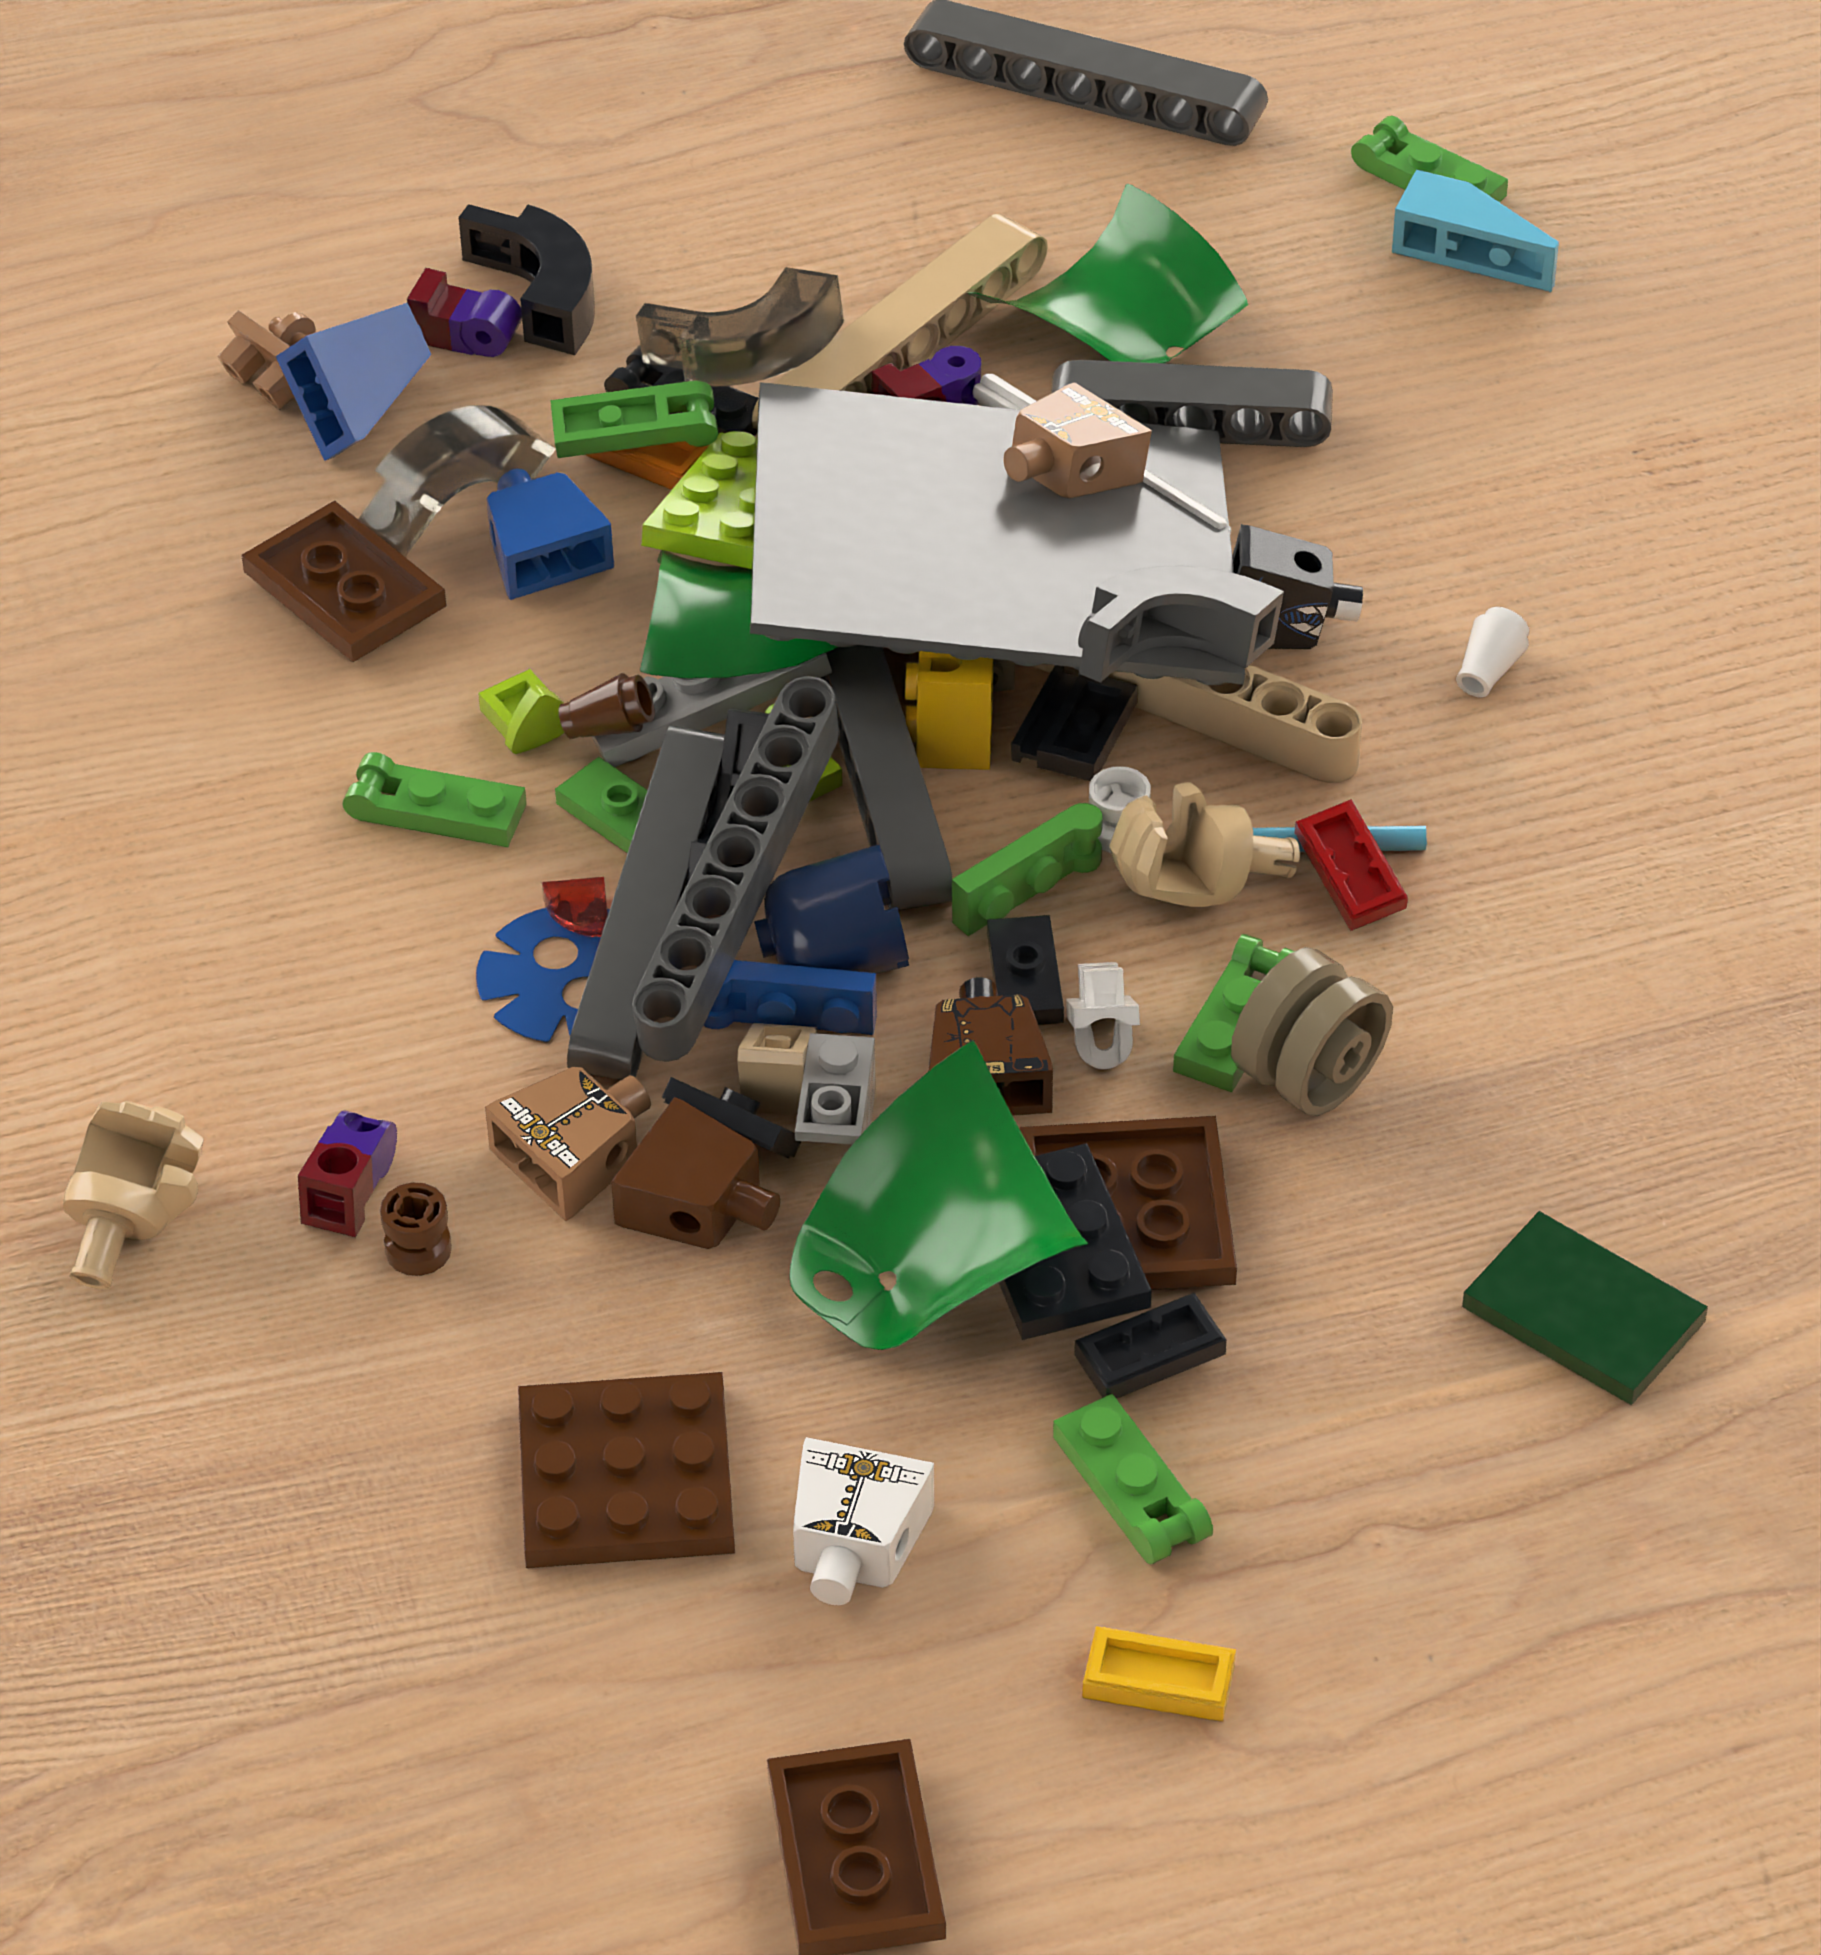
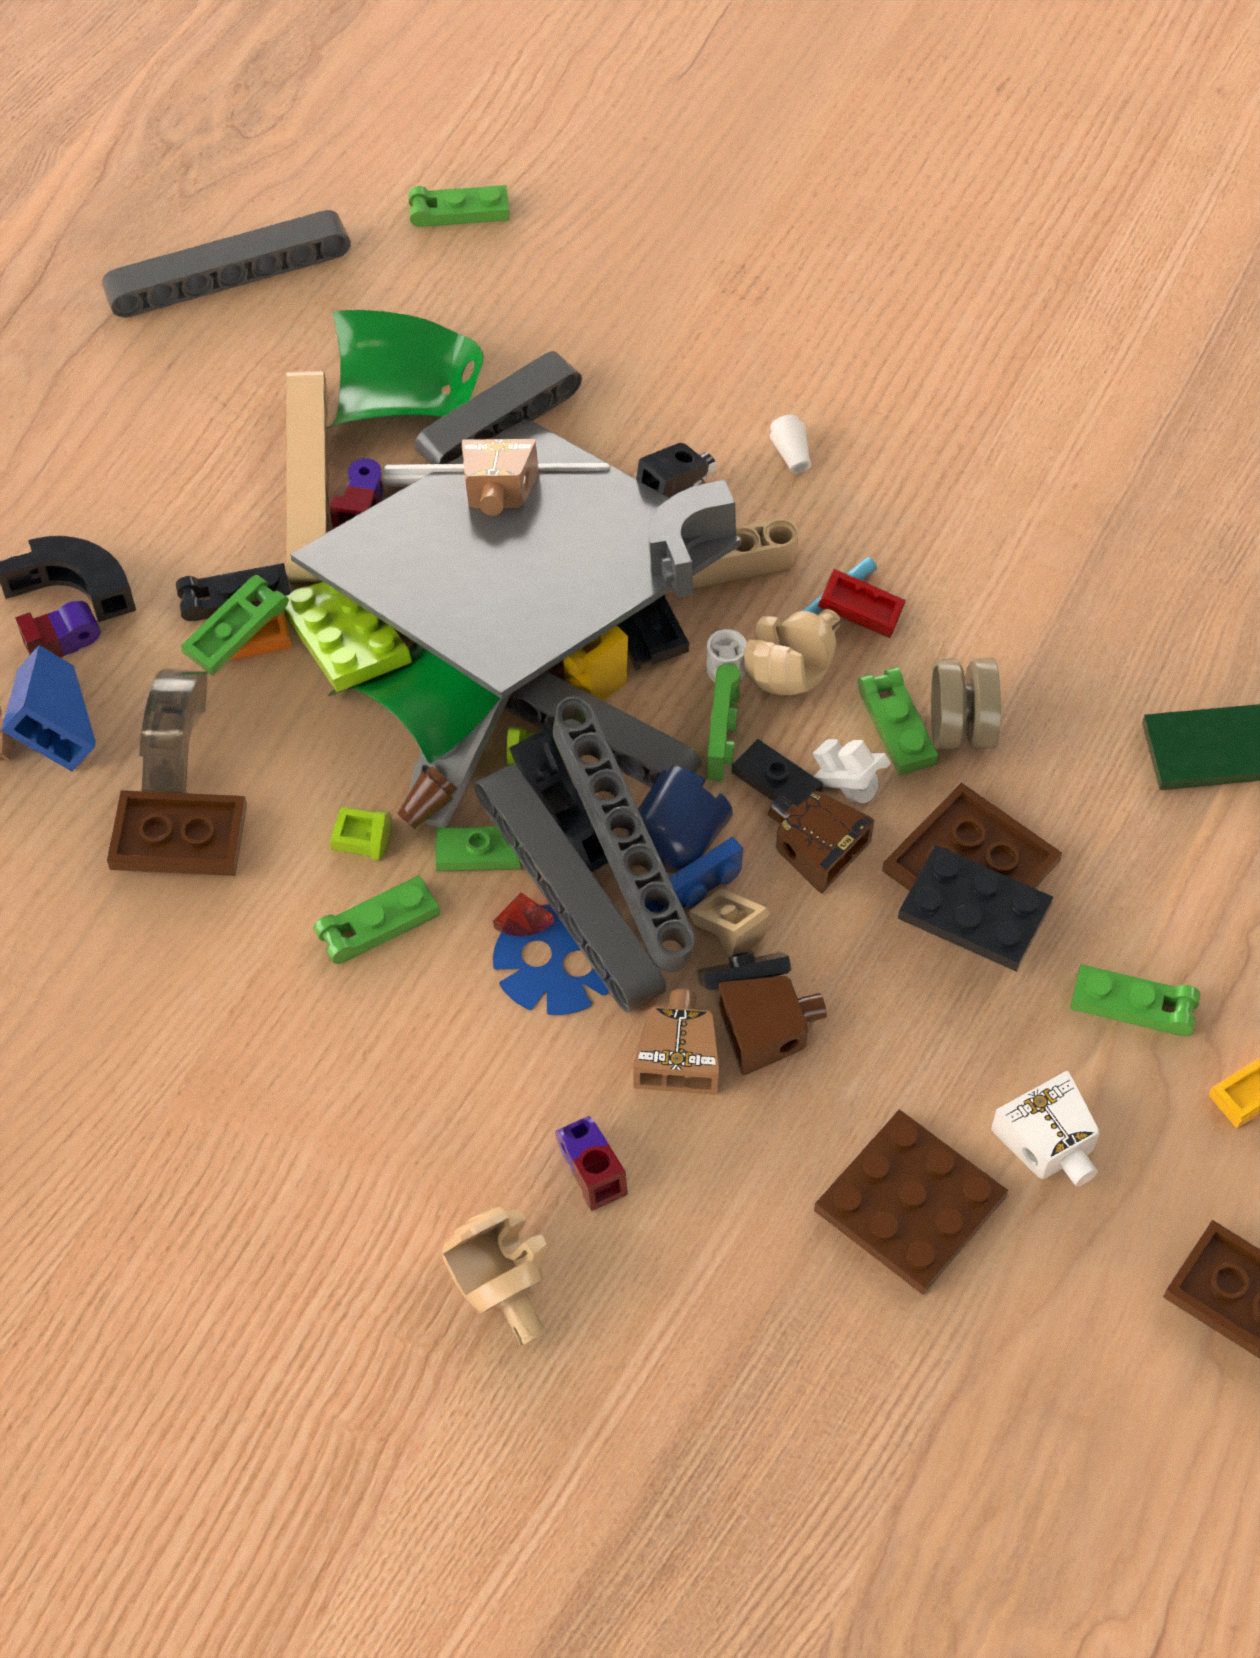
camera: 45 degrees left, 10 degrees up
(415, 1229) = (666, 1174): reddish brown wheel -> none
(546, 532) = (254, 723): blue torso -> none
(748, 342) = (251, 540): clear smoke arch -> none
(836, 1089) = (794, 922): light grey slope -> none
(936, 1197) = (920, 935): green piece -> none
(1150, 1347) = (1067, 926): black plate -> none
(1470, 231) = (525, 224): medium azure slope -> none

